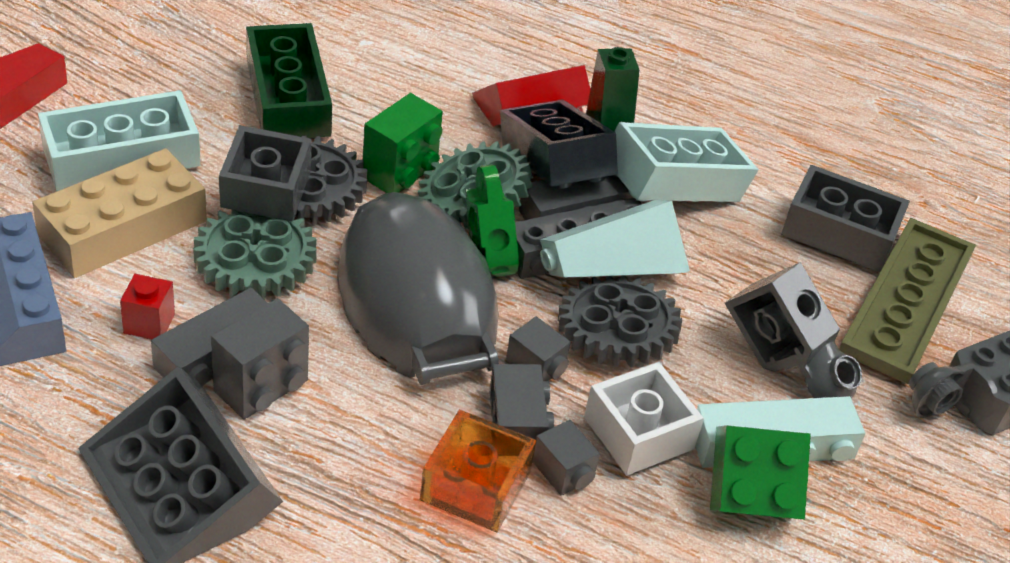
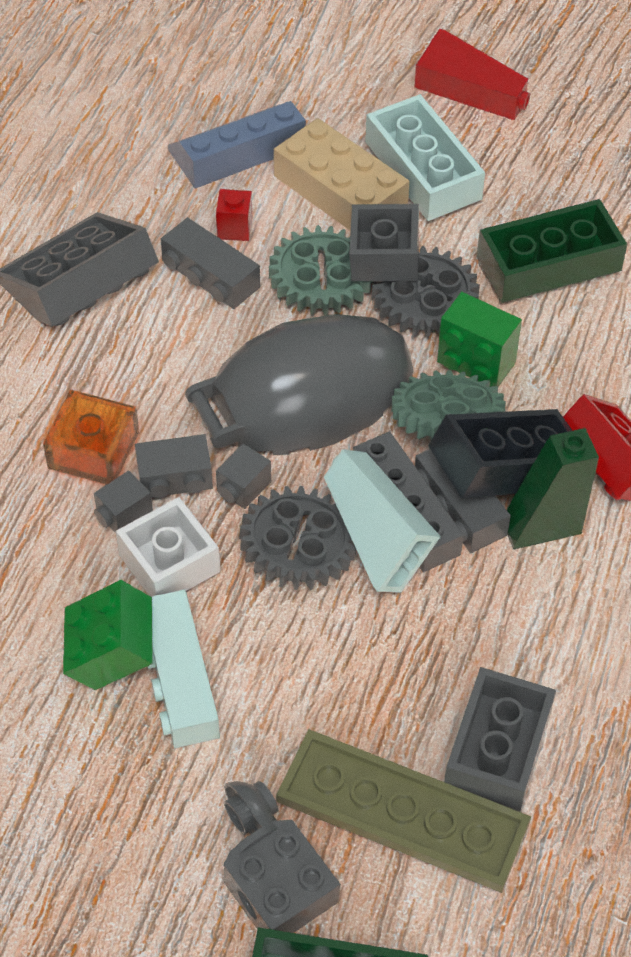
camera: 90 degrees right, 10 degrees up
(260, 358) = (180, 283): dark grey brick -> none
(492, 222) = (376, 409): green piece -> none
(681, 163) = (518, 564): light aqua brick -> none
(792, 328) = (288, 674): dark grey brick -> none

